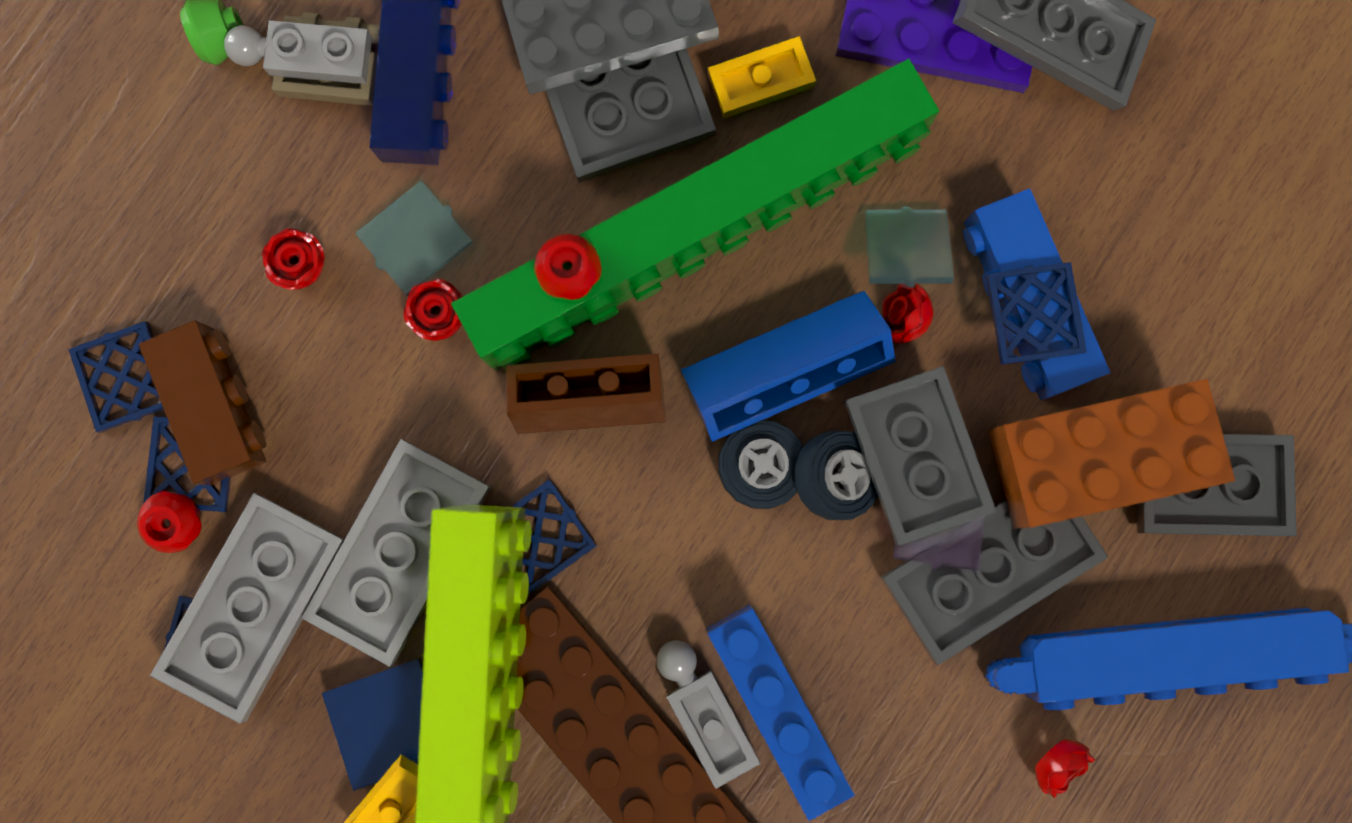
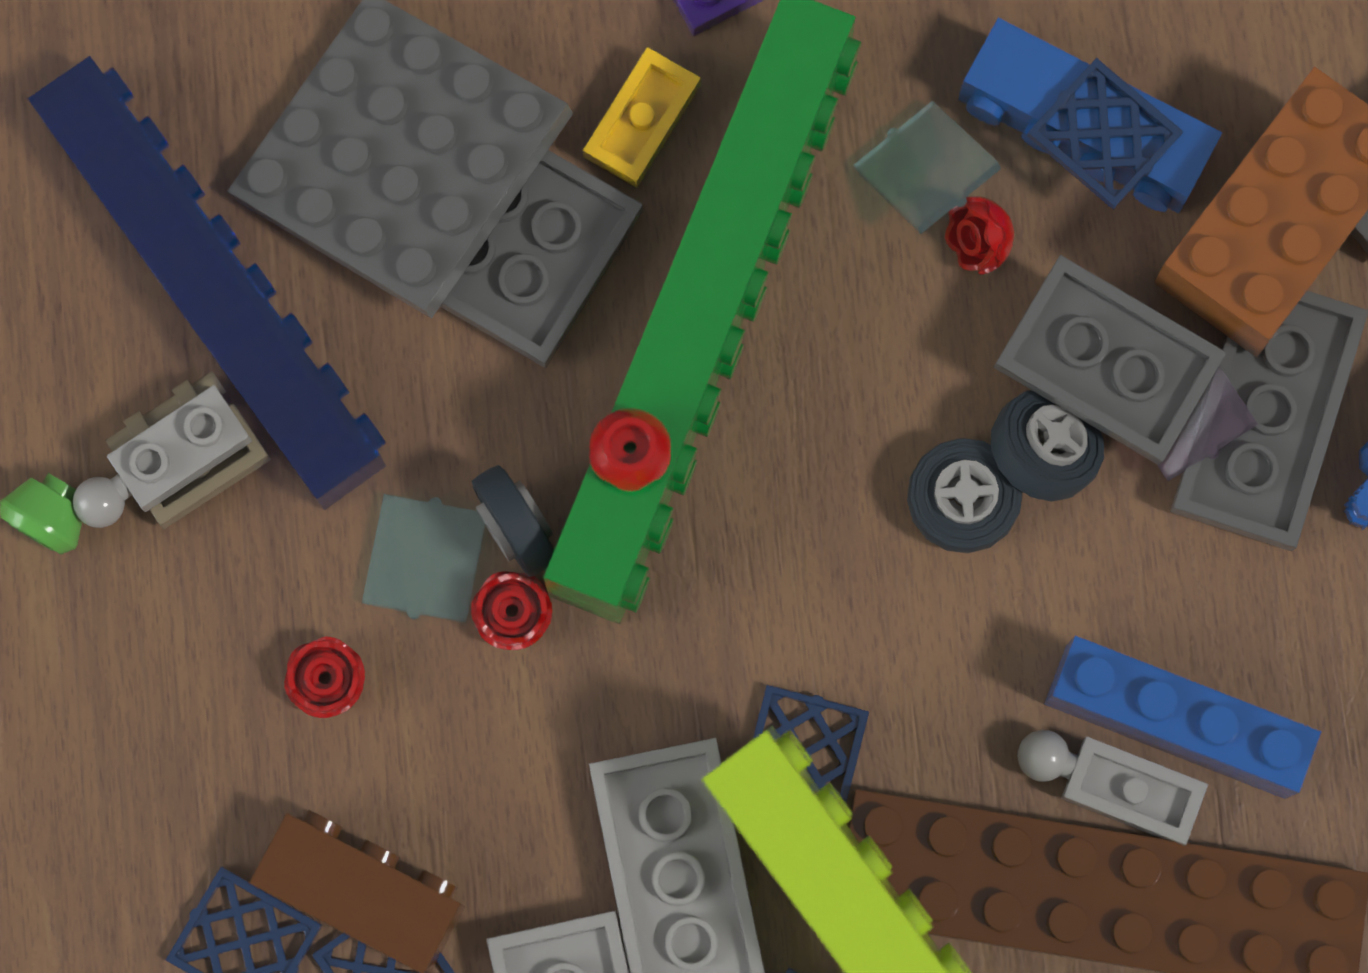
camera: 40 degrees left, 5 degrees down
(475, 252) = (513, 520): none -> black wheel
(585, 393) = (738, 565): reddish brown brick -> none
(789, 365) = (909, 377): blue brick -> none

